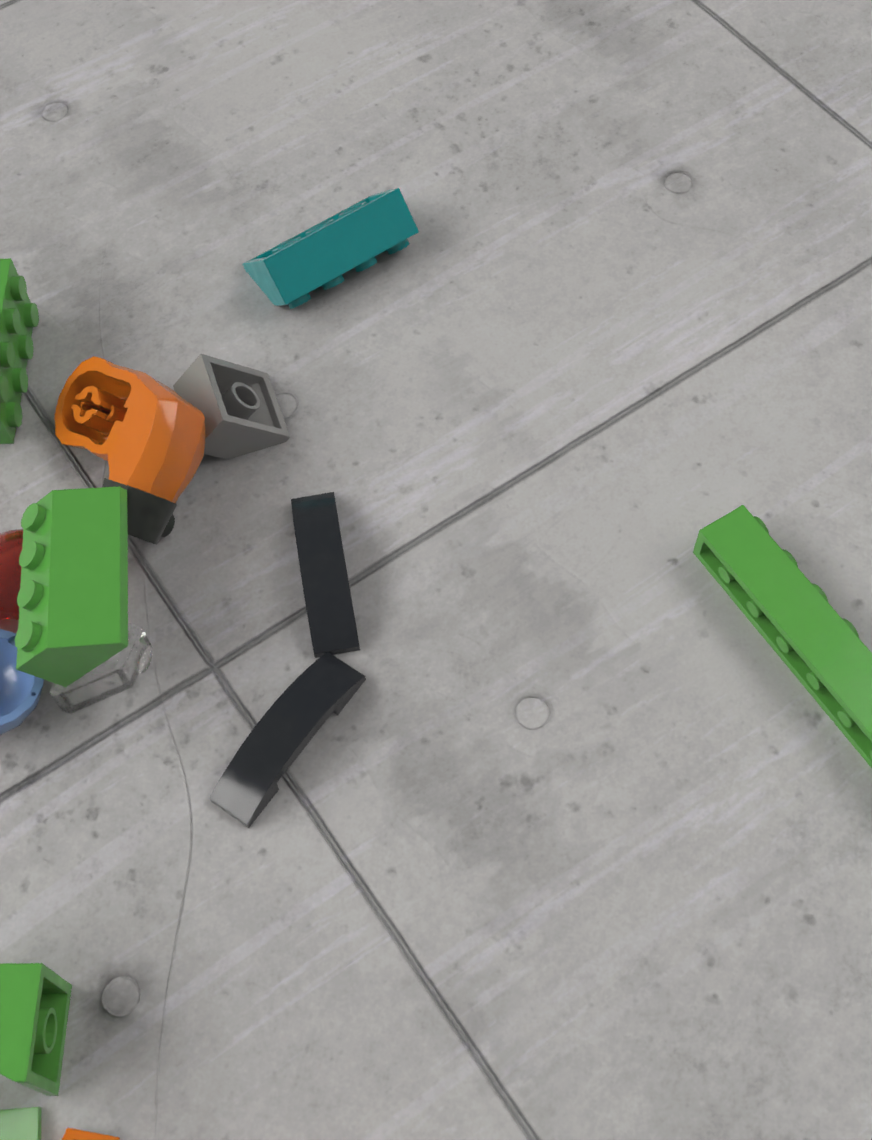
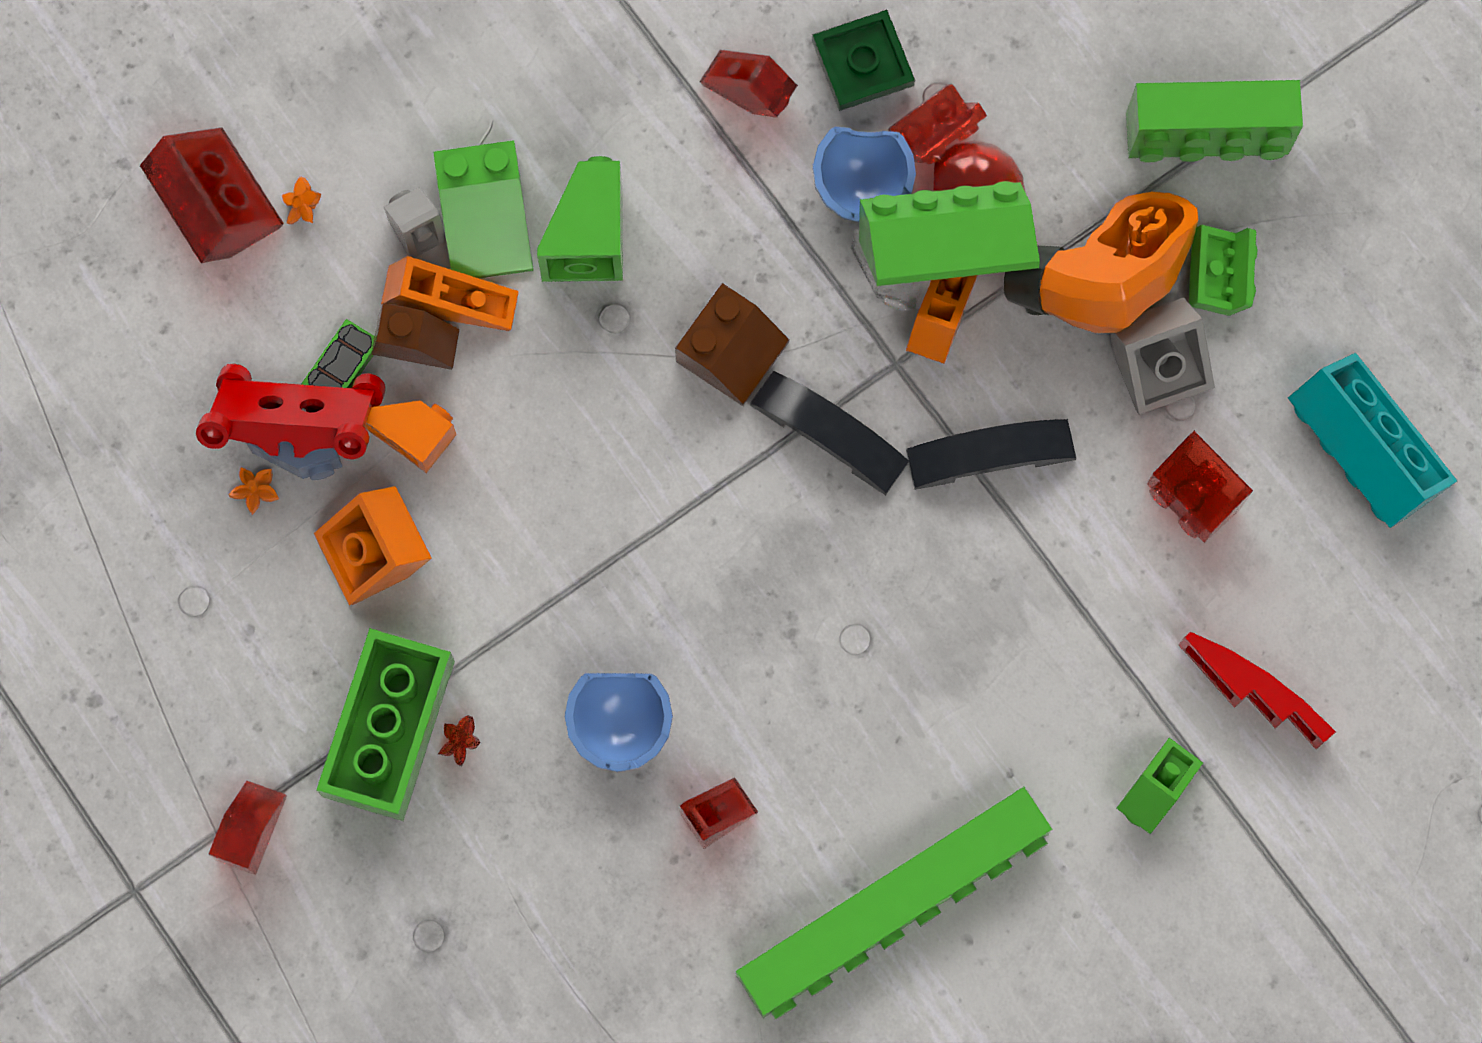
camera: 85 degrees right, 15 degrees up
(152, 348) = (1222, 270): none -> bright green bracket
(170, 609) = (940, 317): none -> orange slope
(172, 844) = (731, 345): none -> reddish brown slope
(374, 371) = (1198, 488): none -> clear red slope
(572, 346) = (1242, 679): none -> red slope
(656, 975) = (618, 719): none -> medium blue cylinder
(683, 419) = (1159, 786): none -> bright green slope
(755, 862) = (717, 812): none -> clear red slope

